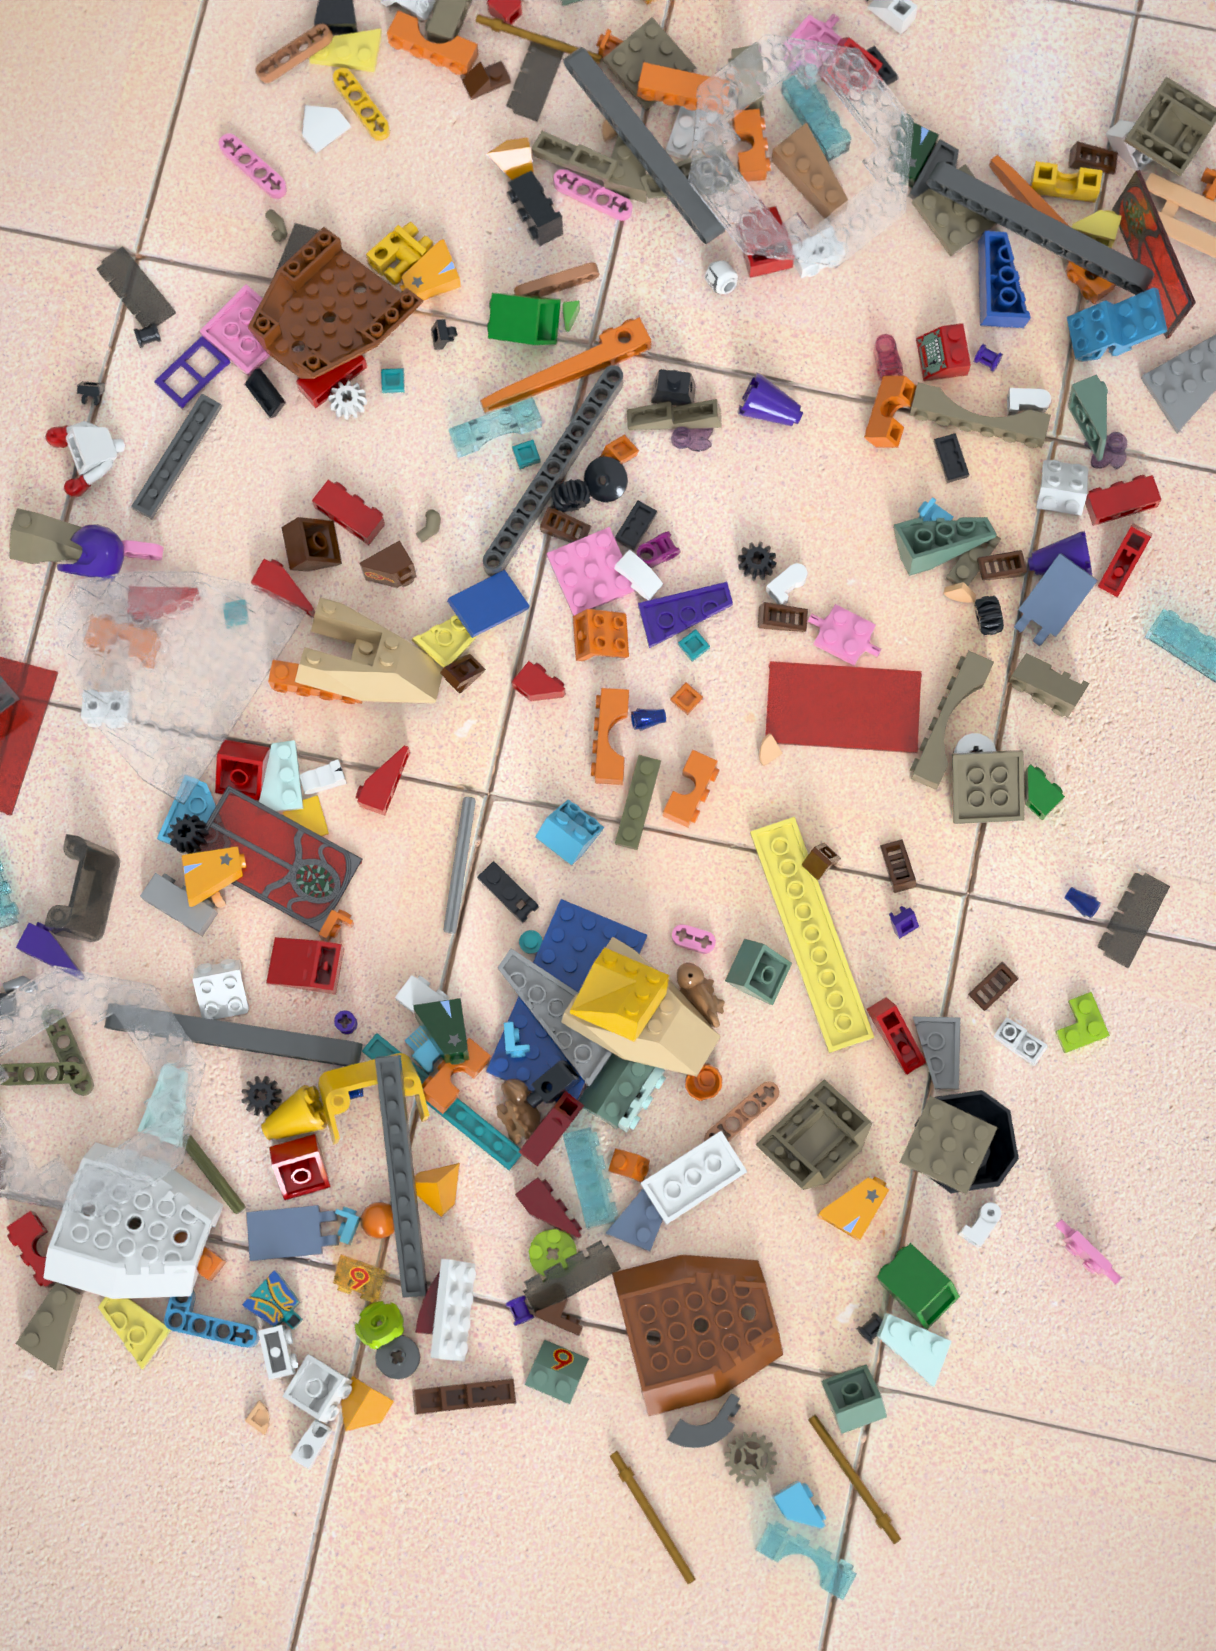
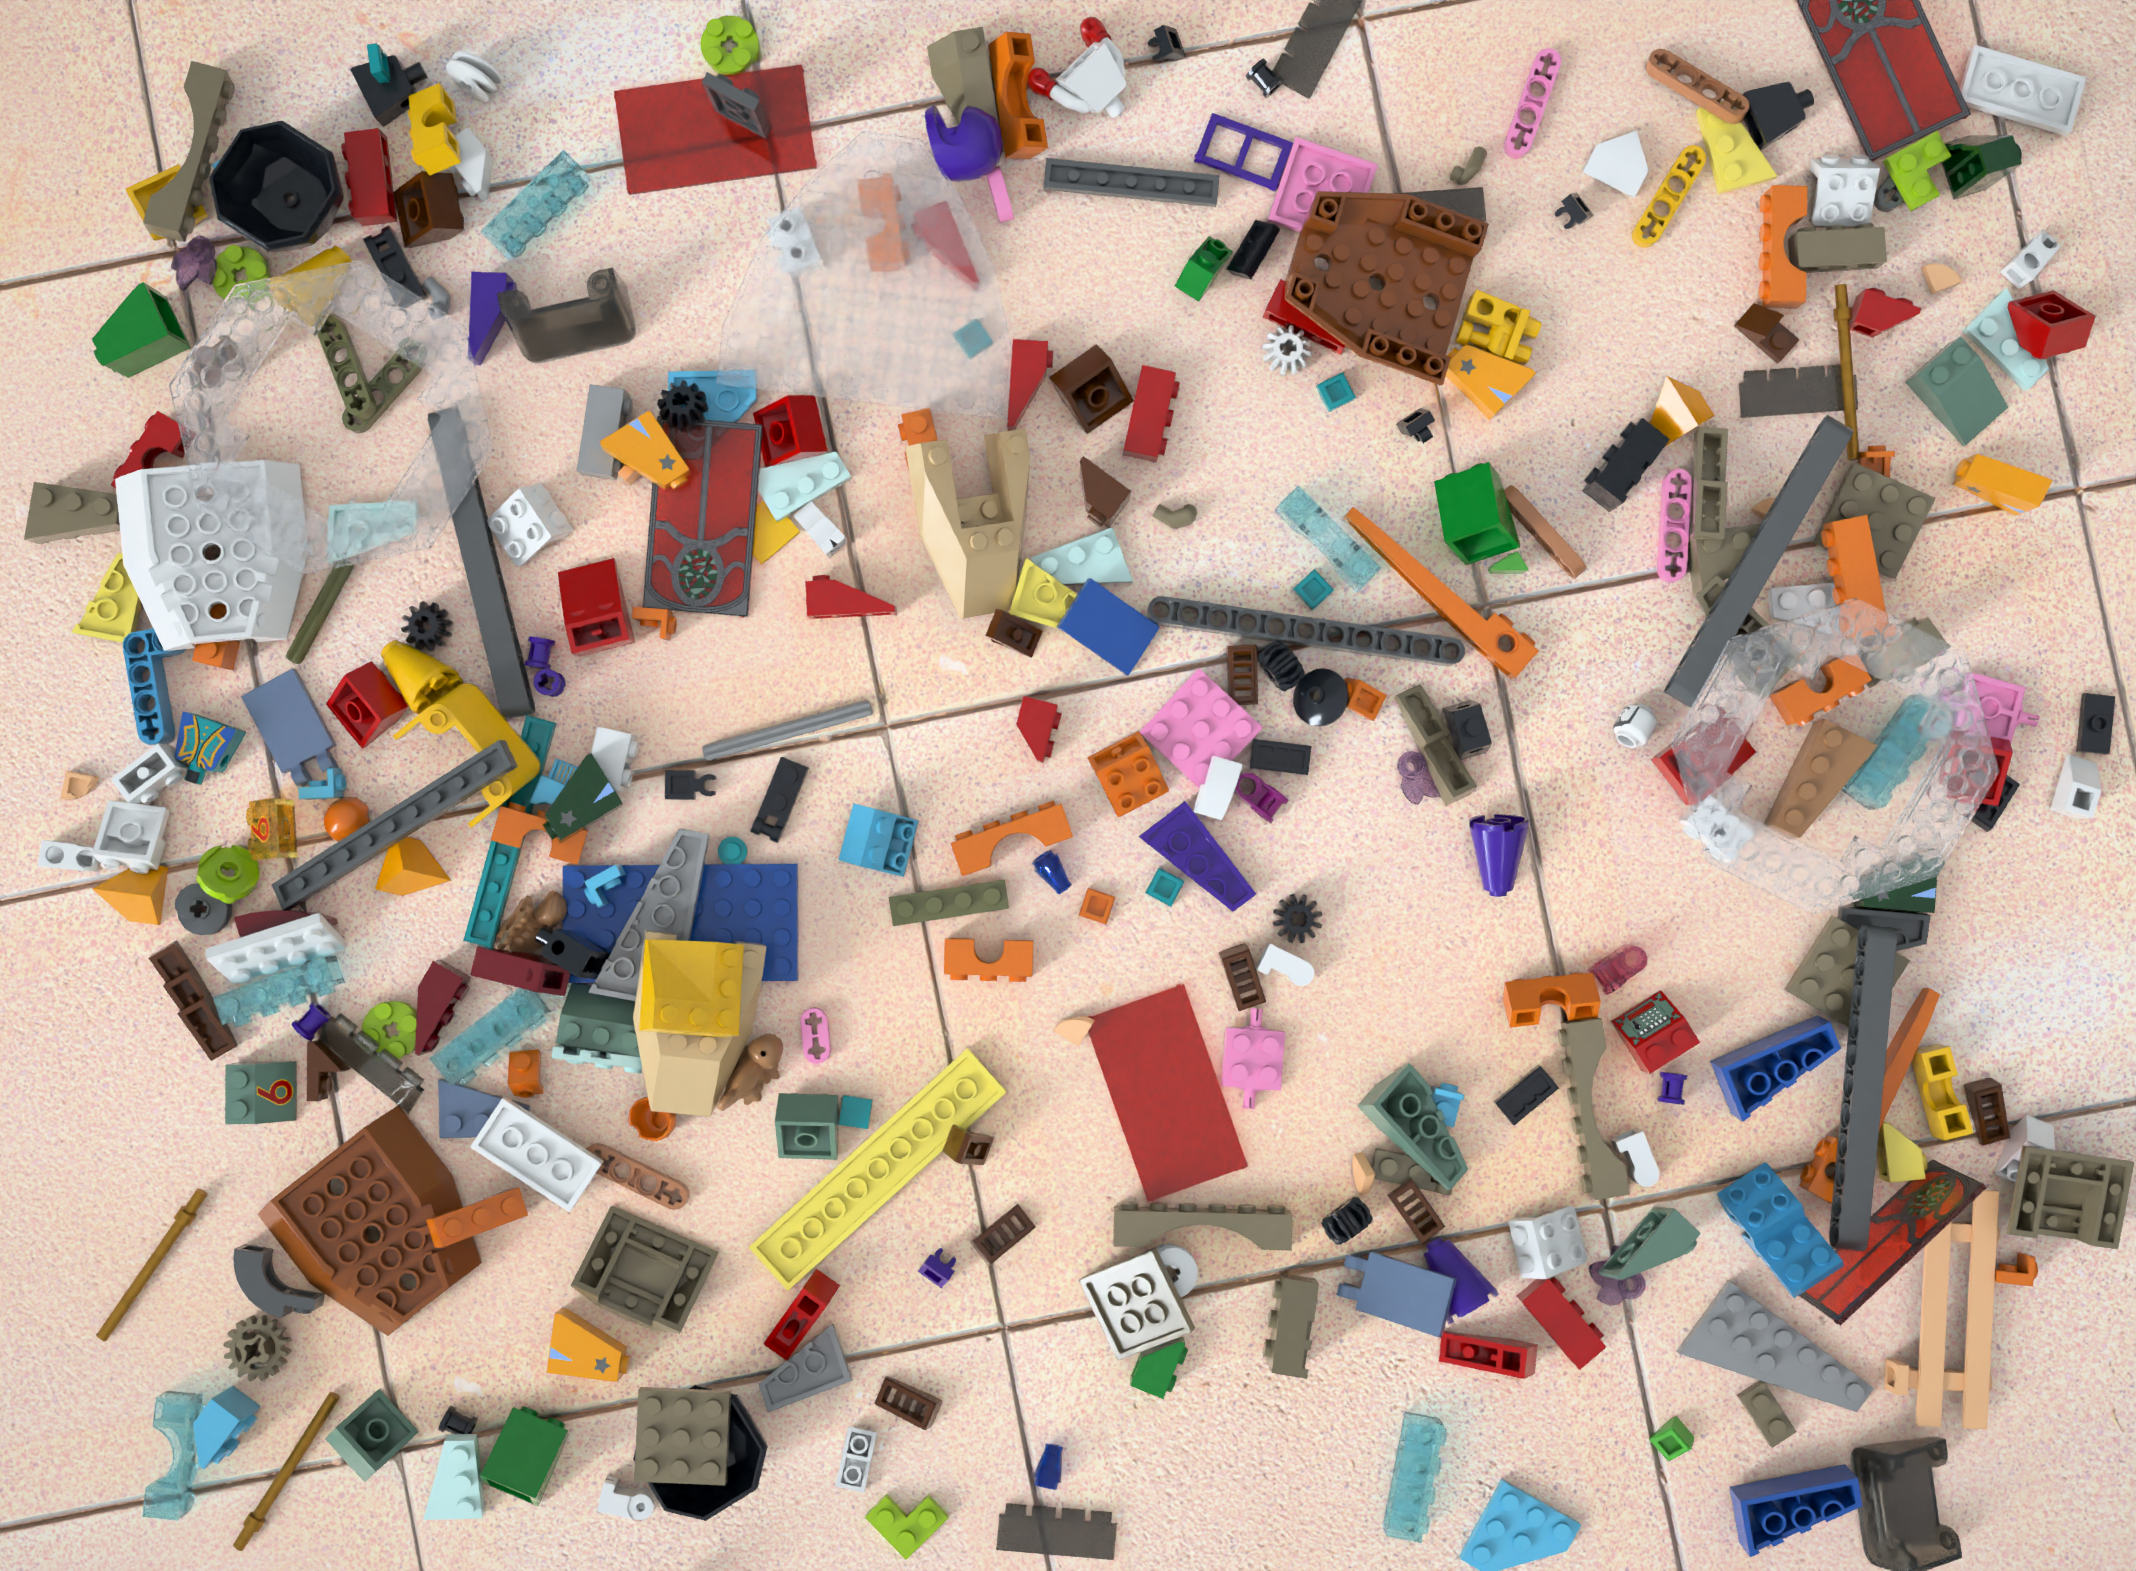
camera: 65 degrees right, 10 degrees up
(51, 500) = (1011, 63): none -> orange arch
(262, 432) = (1203, 268): none -> green slope
(319, 1021) = (539, 652): none -> dark purple bush
(341, 166) = (1576, 208): none -> black tile
(432, 598) = (1089, 557): none -> light aqua wing
(466, 956) = (684, 785): none -> black plate
(485, 1324) = (286, 987): none -> clear light blue brick
(721, 1240) = (477, 1217): none -> orange arch
(762, 932) = (855, 1111): none -> teal tile

